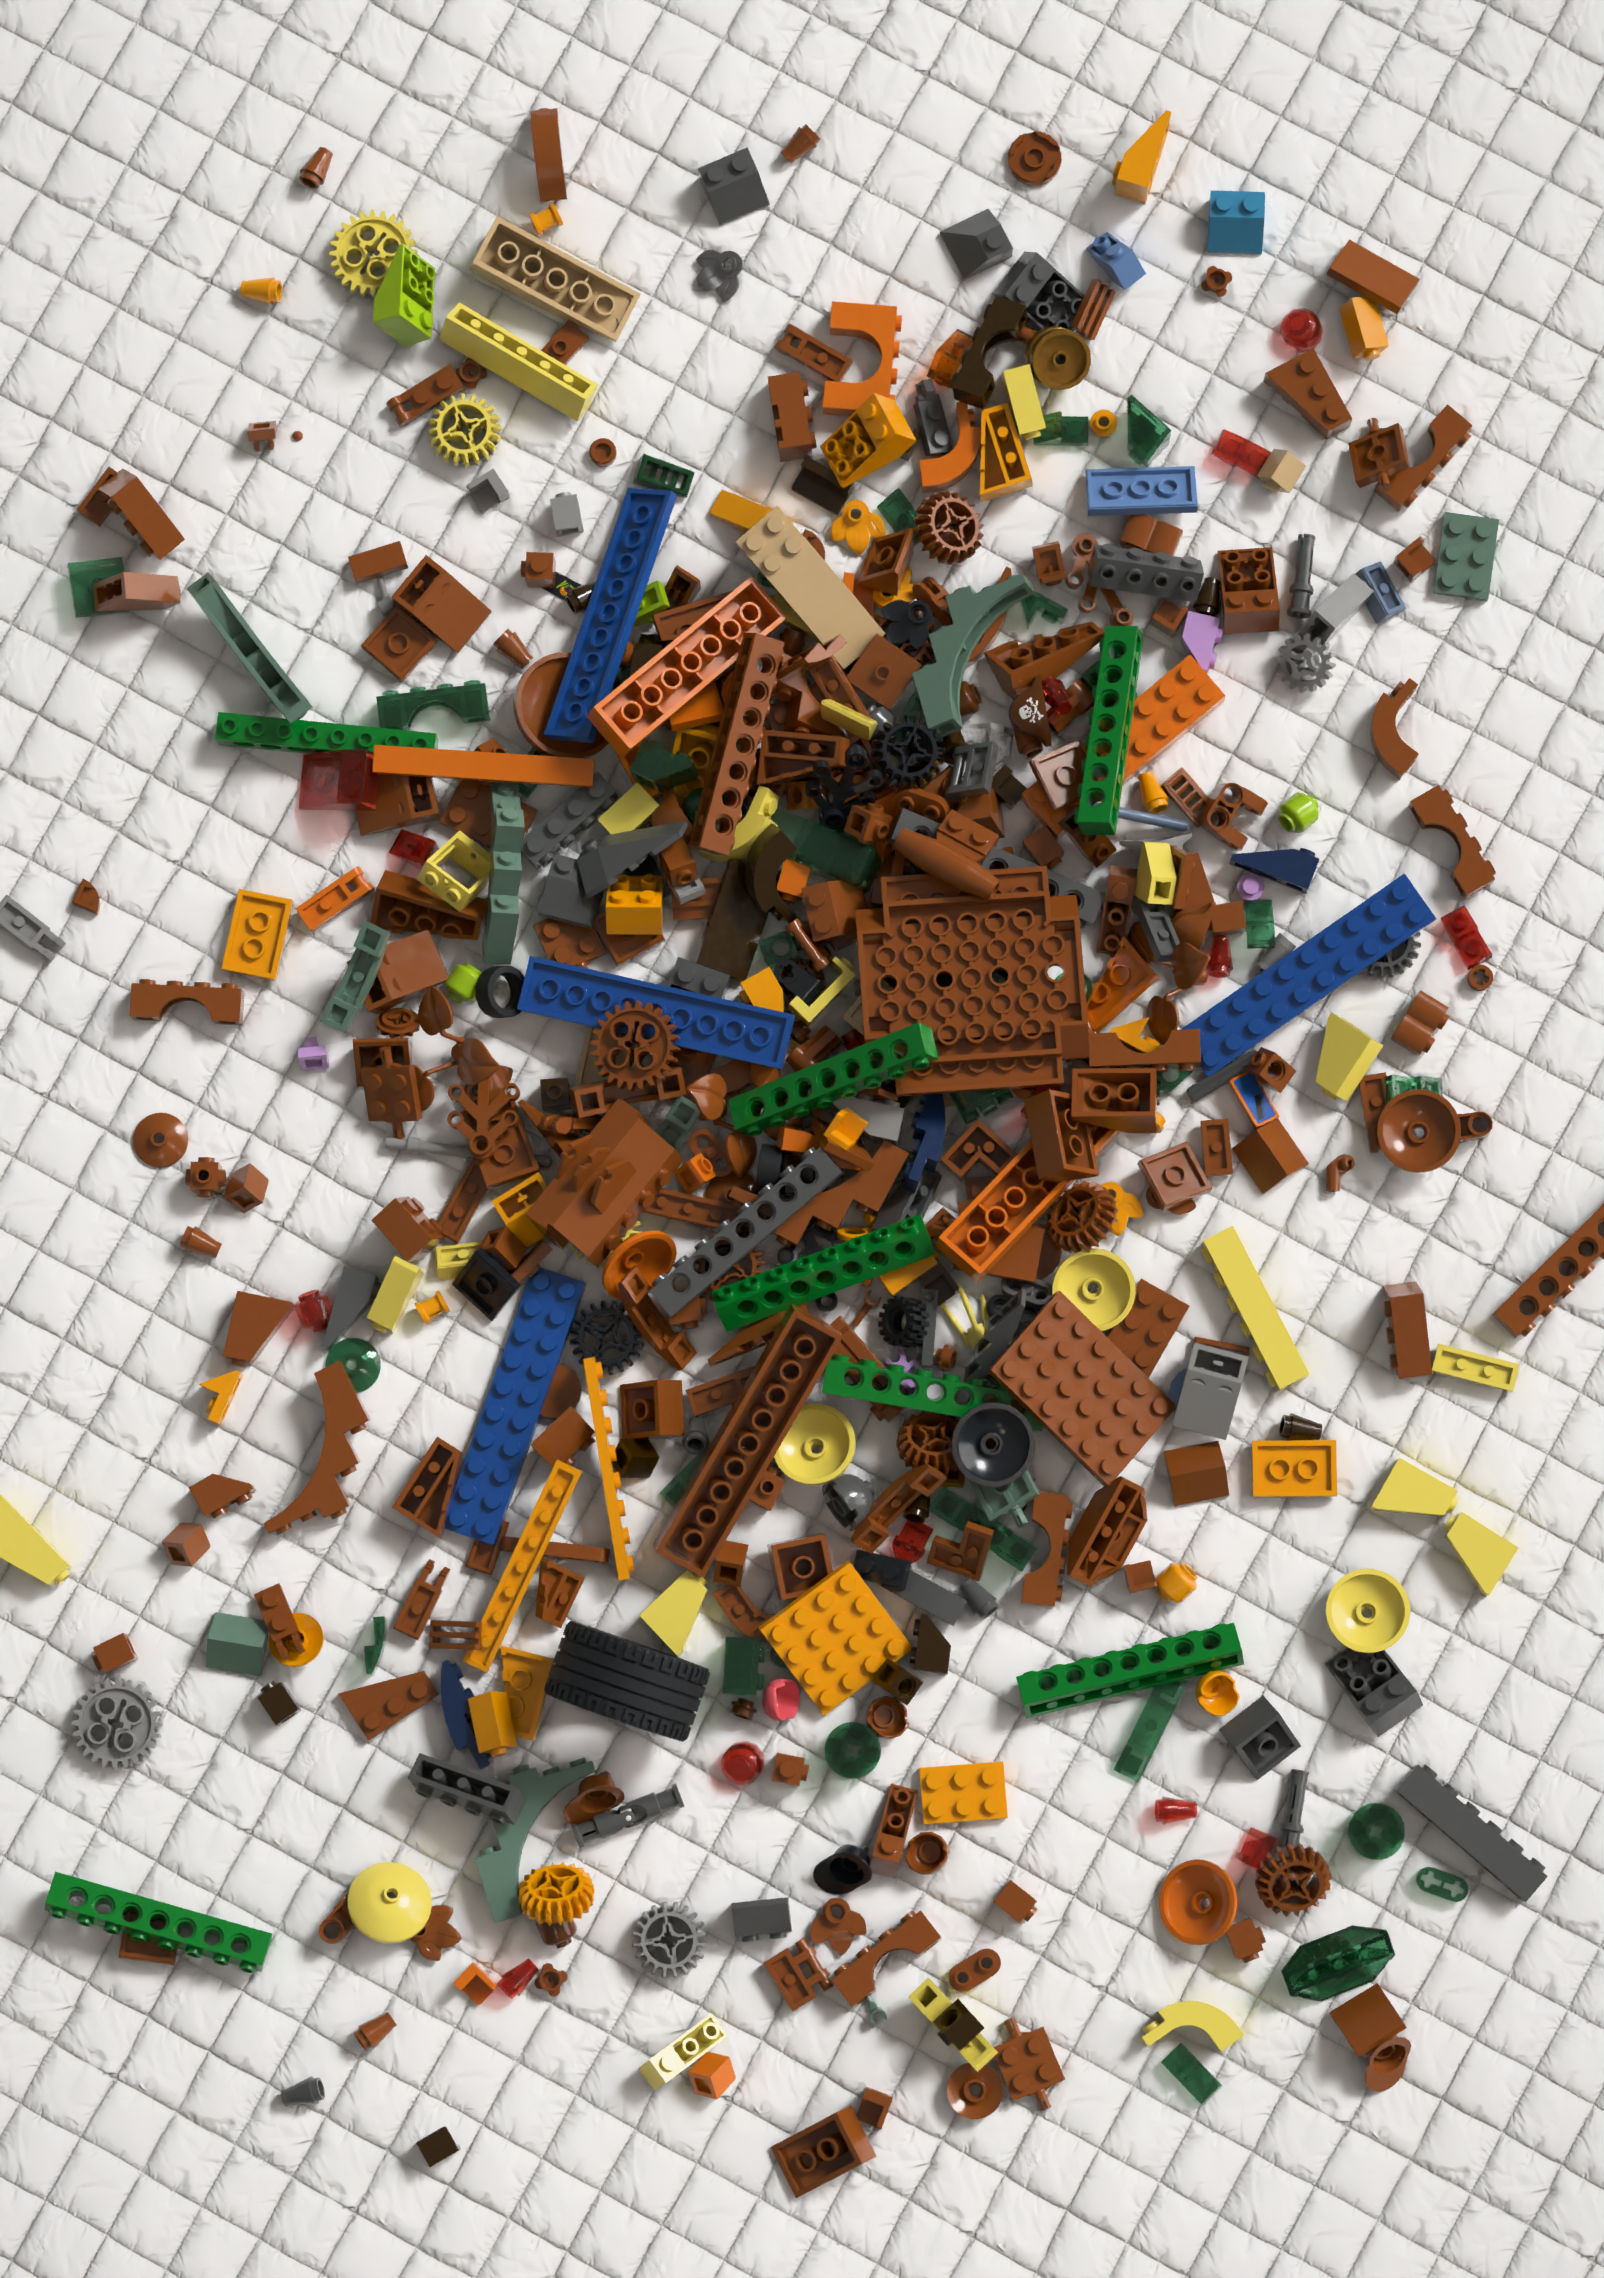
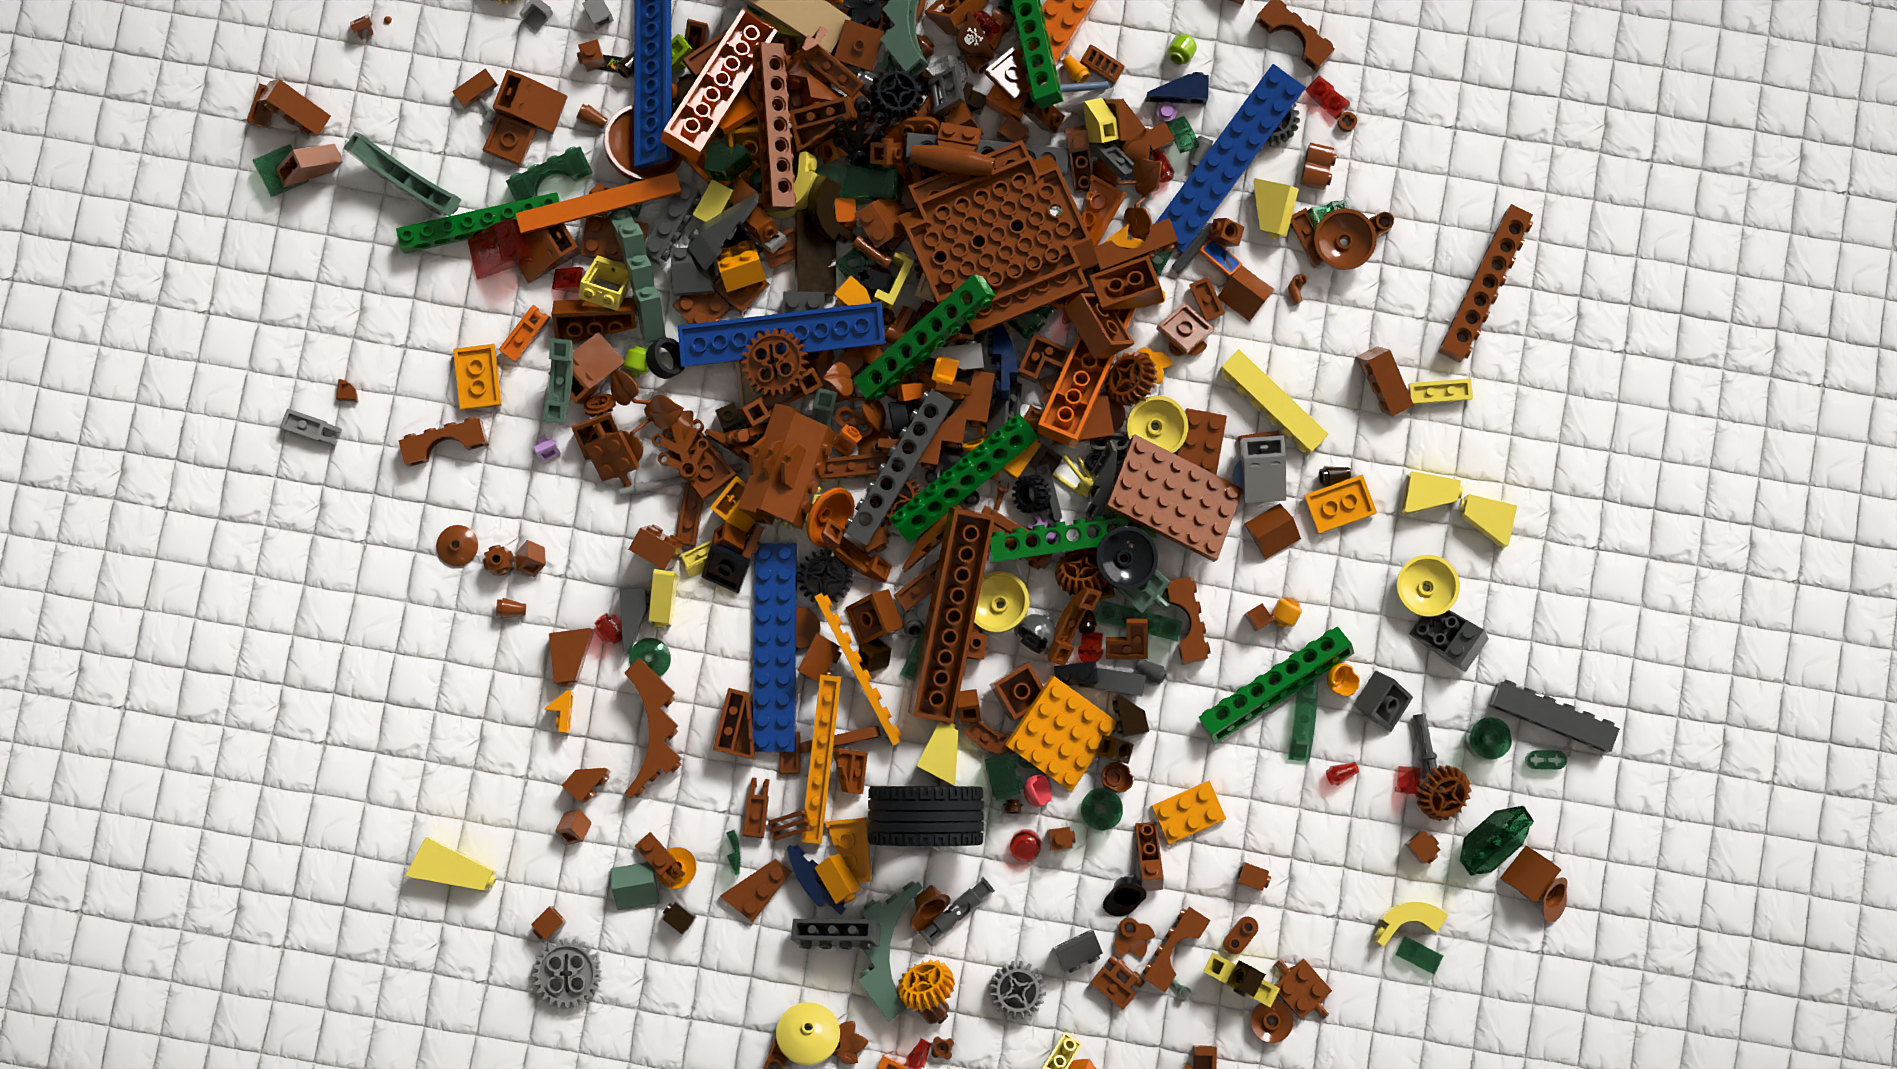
camera: 30 degrees left, 0 degrees up
(432, 1307) = (693, 597): light orange bush -> none
(847, 719) = (846, 85): light yellow slope -> none
(927, 1853) = (1179, 864): dark orange hair -> none
(945, 1358) = (1069, 510): dark orange plate -> none
(1107, 1531) = (1225, 592): dark orange wedge -> none
(1184, 1897) = (1370, 834): orange dish -> none
(1226, 812) = (1131, 64): dark orange piece -> none

